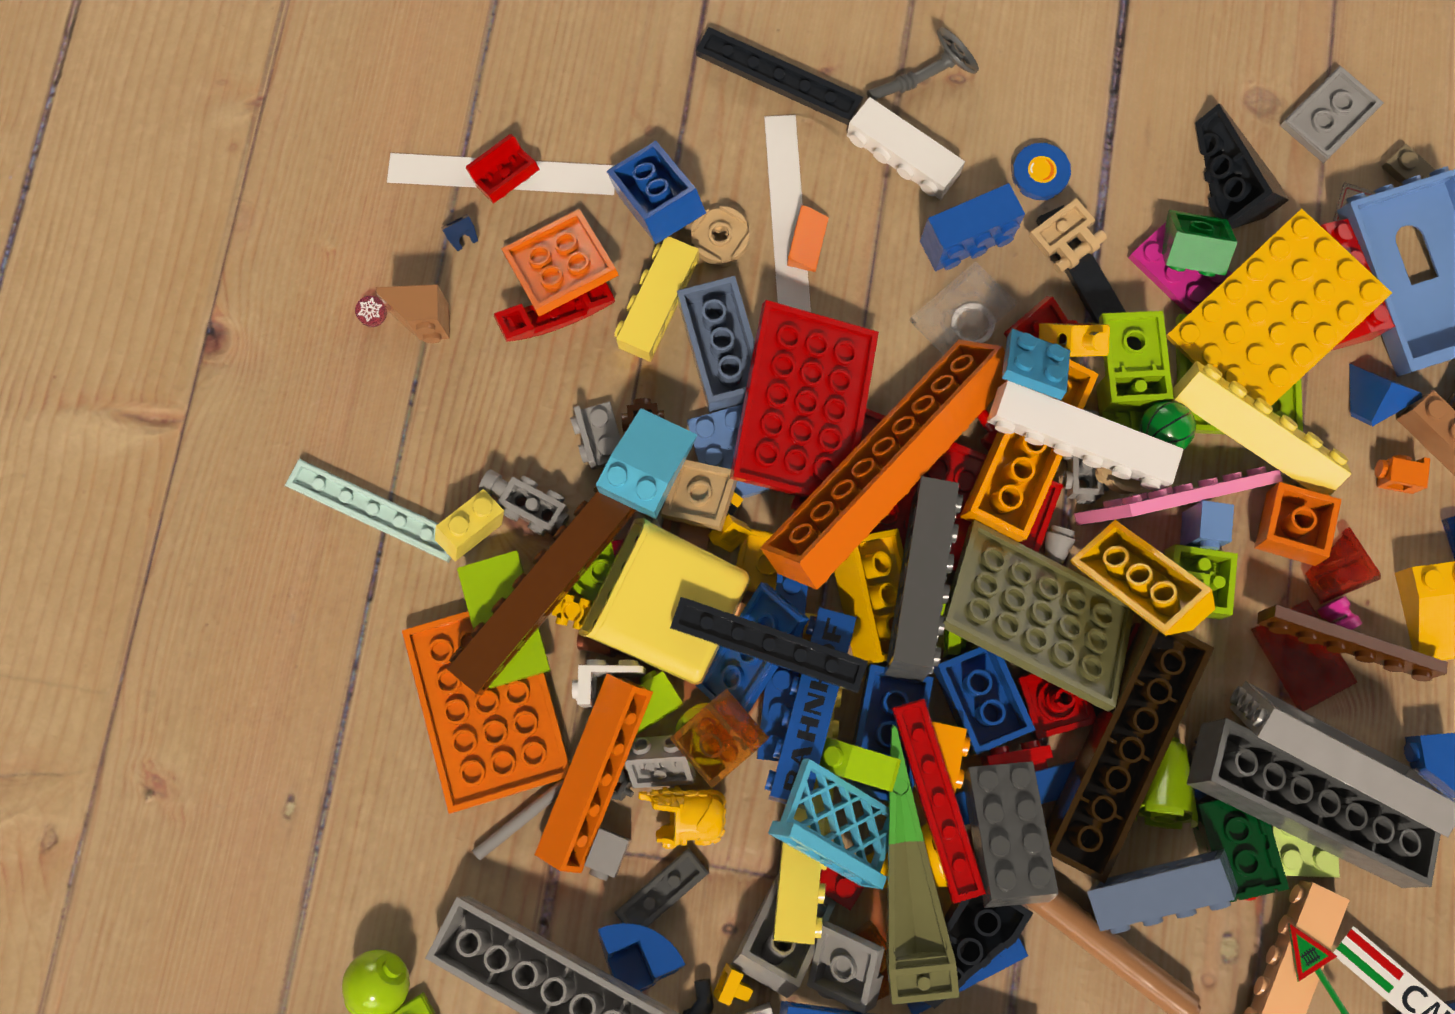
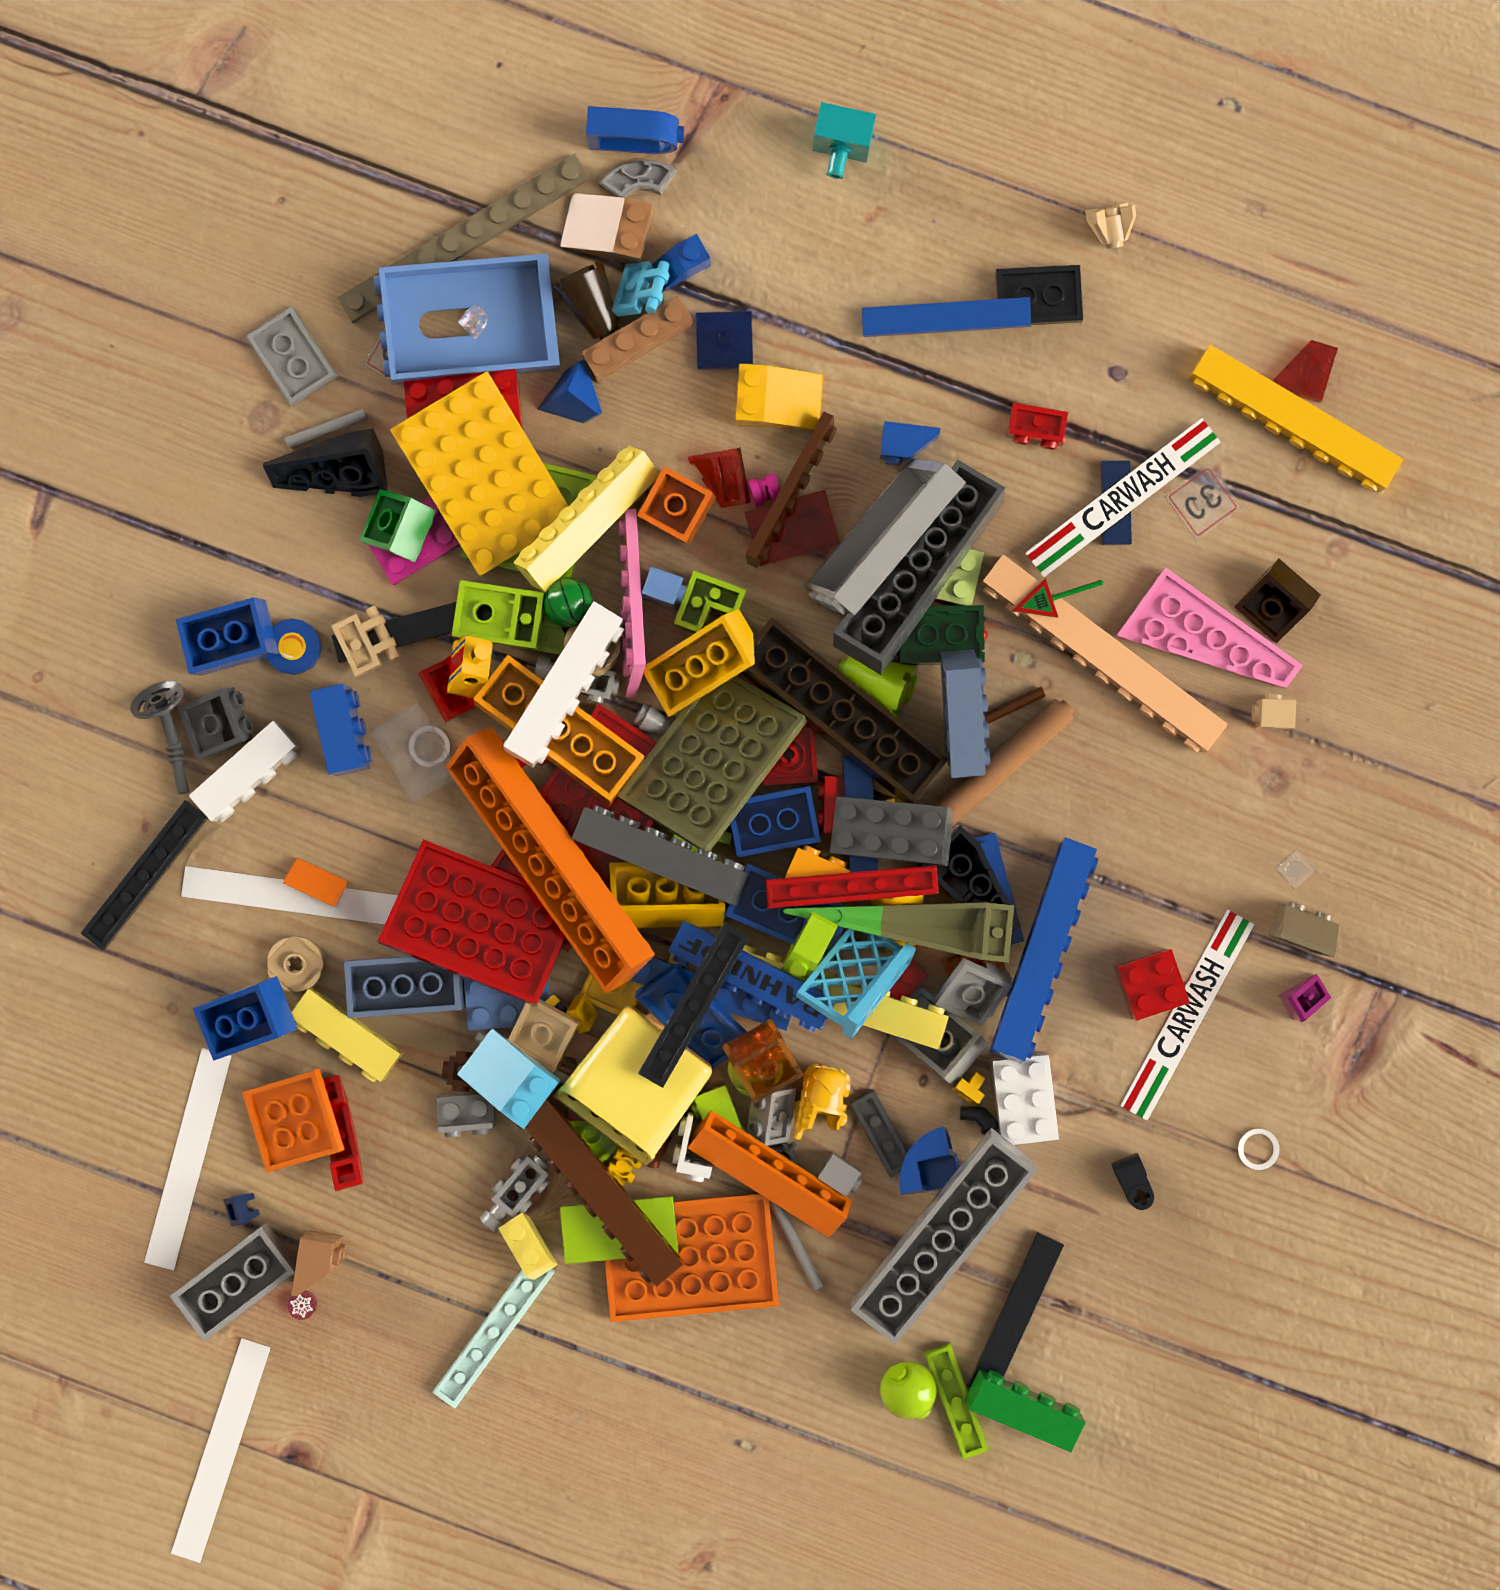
camera: 75 degrees left, 10 degrees up
(210, 262) = (220, 1450): none -> white sticker
(382, 235) = (235, 1282): none -> light grey brick
(501, 168) = (187, 1158): red bracket -> none
(948, 111) = (216, 722): none -> dark grey plate
(1036, 364) = (491, 714): dark azure plate -> none
(1039, 102) = (227, 636): none -> blue brick
(1179, 952) = (1014, 705): none -> reddish brown bar
(1270, 160) = (325, 428): none -> light grey bar
(1403, 474) = (649, 397): orange brick -> none
(1430, 276) = (474, 320): none -> clear tile

